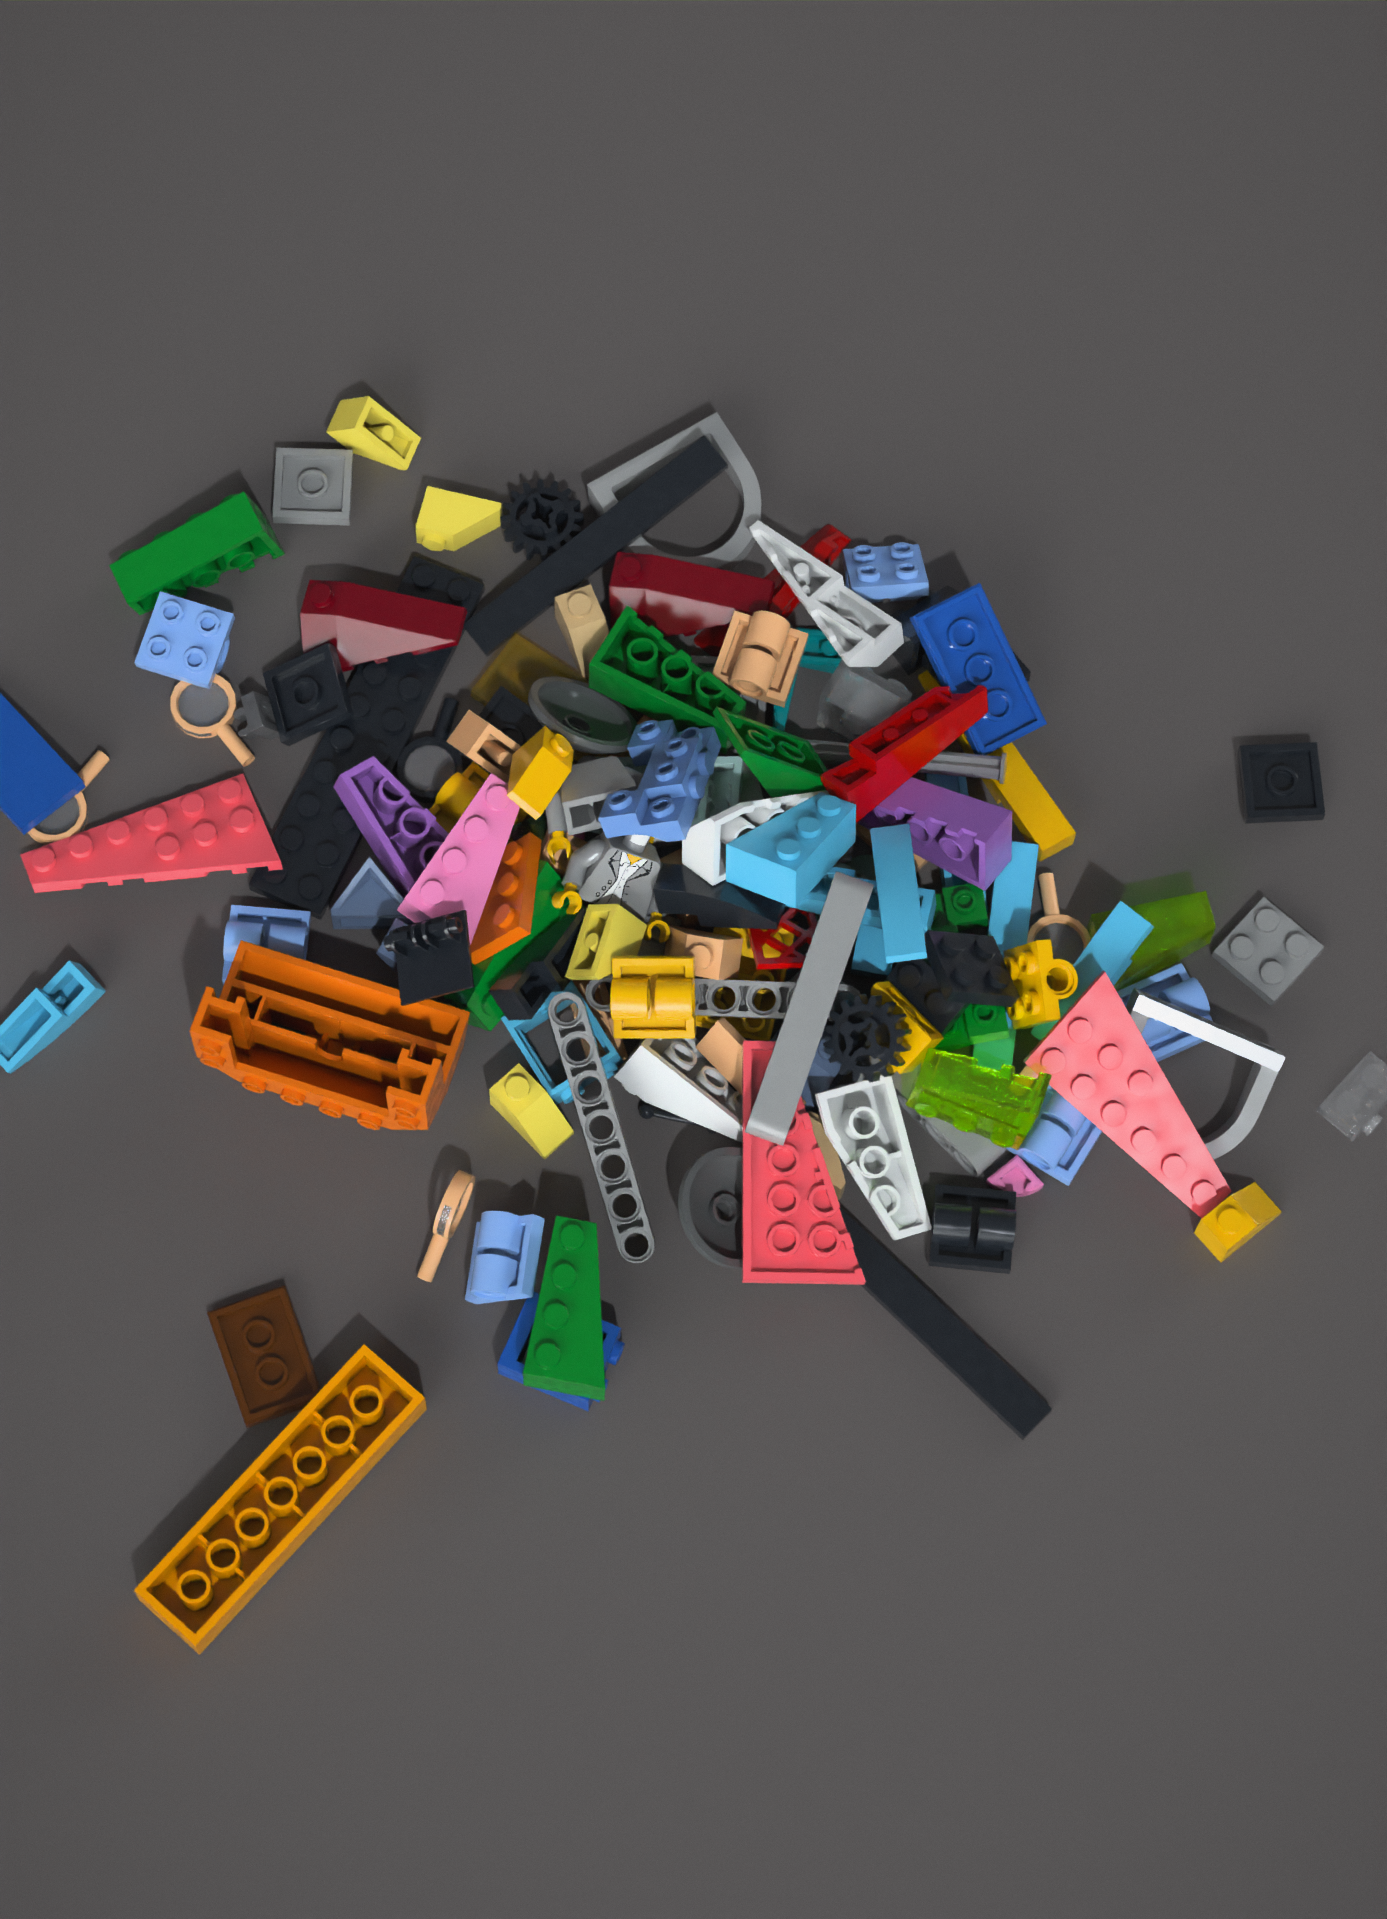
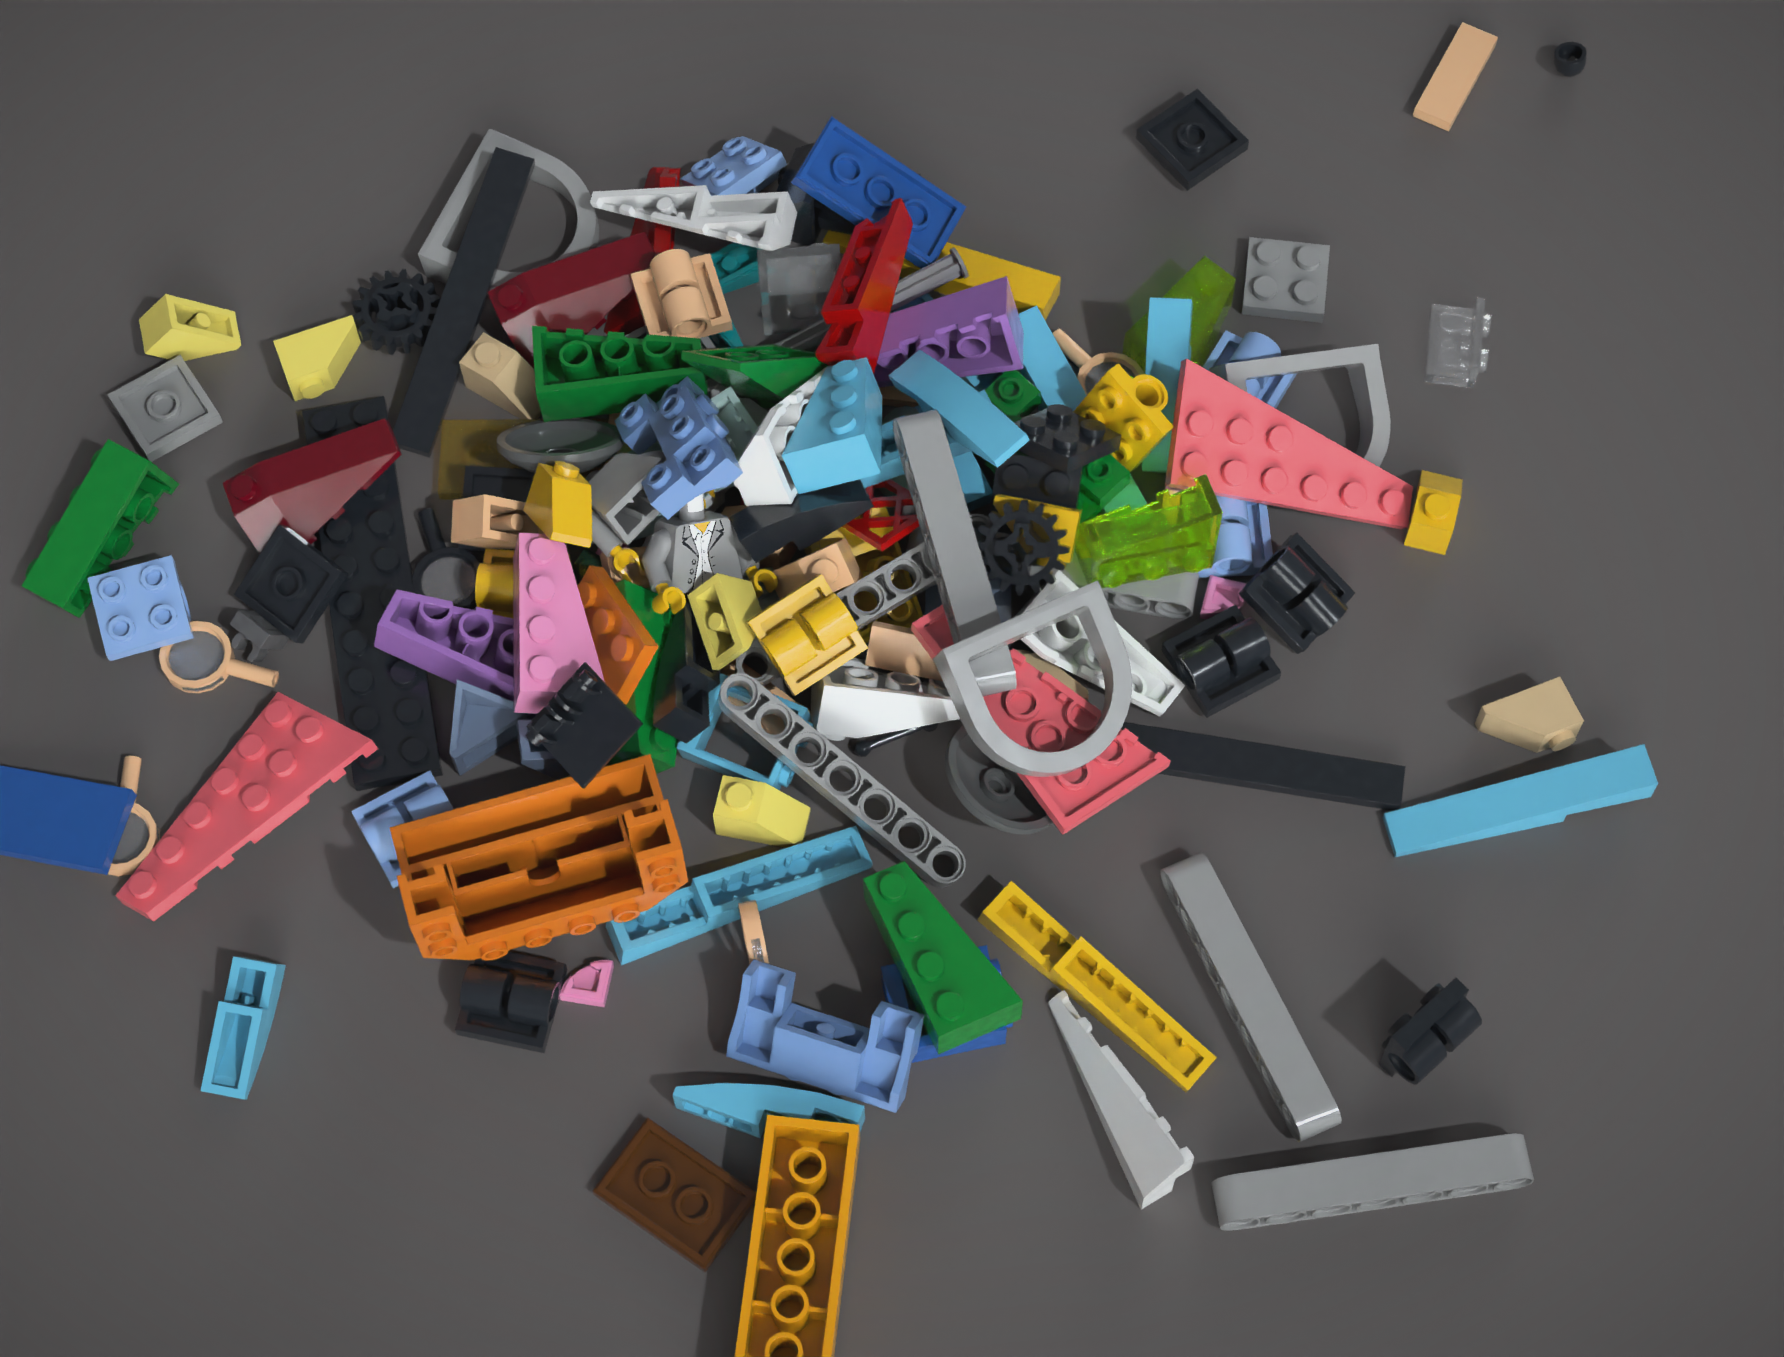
camera: 30 degrees left, 5 degrees down
(247, 1129) = (511, 1000): none -> black plate
(314, 1155) = (589, 984): none -> bright pink tile
(363, 1327) = (747, 1105): none -> medium azure slope
(442, 1320) = (821, 1048): none -> medium blue bracket
(490, 1162) = (715, 896): none -> medium azure slope
(504, 1257) = (834, 954): light blue plate -> none
(627, 1552) = (1134, 1129): none -> white wedge
(686, 1415) = (1096, 986): none -> yellow slope
(779, 1704) = (1372, 1182): none -> light grey beam
(794, 1502) = (1250, 997): none -> light grey beam
(875, 1151) = (1101, 630): none -> light grey window
(921, 1617) = (1423, 1040): none -> black plate
(1071, 1216) = (1297, 594): none -> black plate
(1120, 1499) = (1522, 802): none -> medium azure slope
(1182, 1439) = (1533, 717): none -> tan slope

